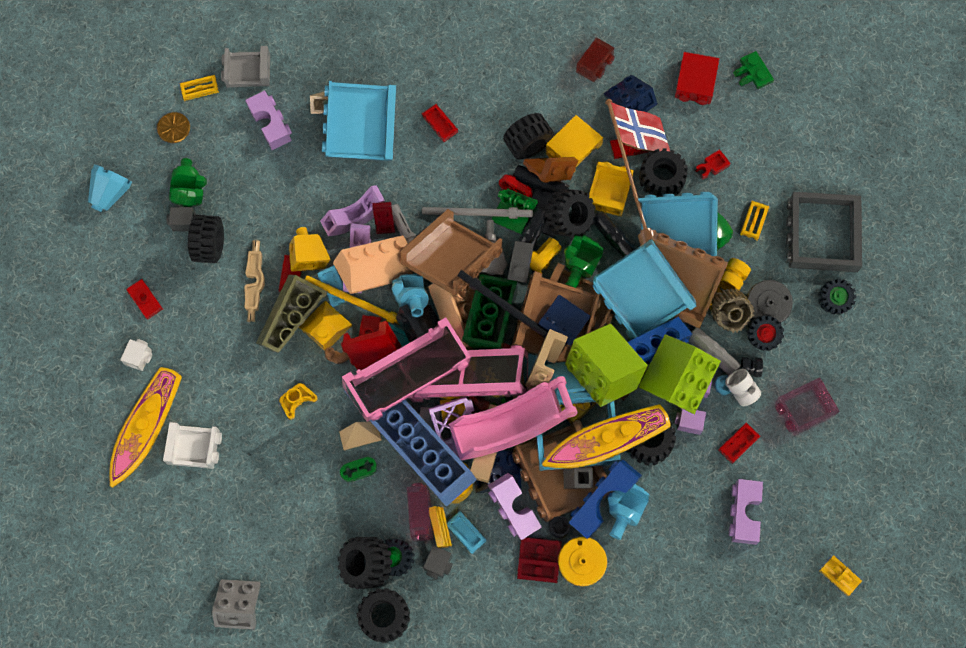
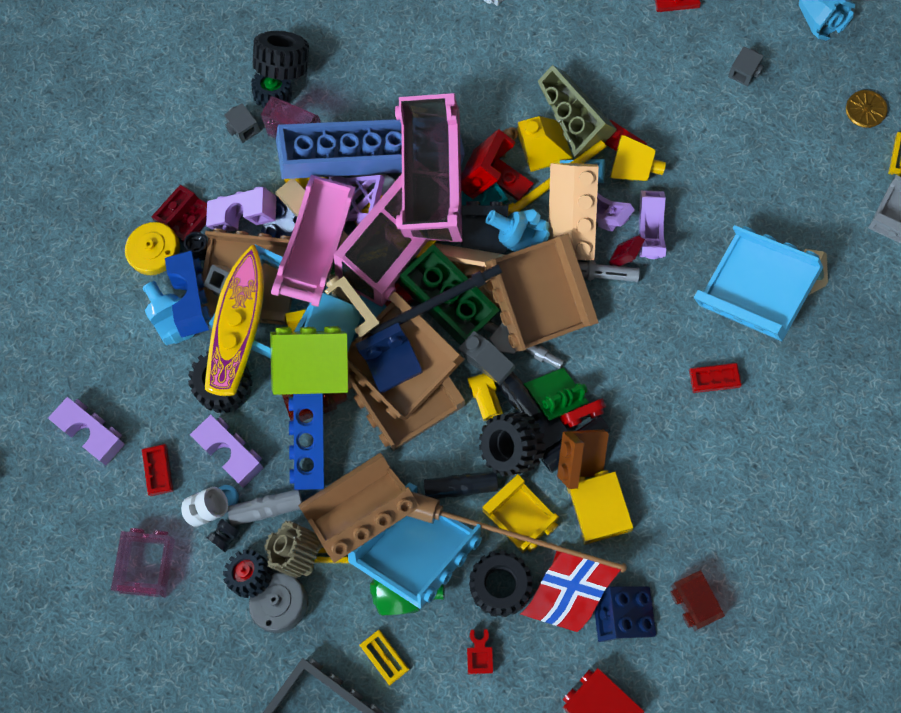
camera: 125 degrees right, 0 degrees up
(186, 185) = (782, 84): green piece -> none
(205, 239) = (704, 69): black tyre -> none
(253, 290) = (647, 108): tan piece -> none
(262, 107) = (800, 203): lavender arch -> none
(295, 397) = (486, 81): yellow piece -> none
(356, 465) = (372, 101): green beam -> none
(399, 624) = (224, 37): black tyre -> none
(440, 527) = (262, 141): yellow tile -> none
(466, 532) = (254, 164): medium azure tile -> none
(512, 212) = (551, 383): light grey bar -> none
(528, 136) = (635, 454): black tyre -> none
(581, 259) = (452, 428): green piece -> none
(643, 290) = (368, 458): medium azure panel -> none
(679, 374) = (254, 438): lime container -> none
(735, 274) = (331, 580): yellow wheel -> none
(837, 296) = (234, 684): black wheel -> none

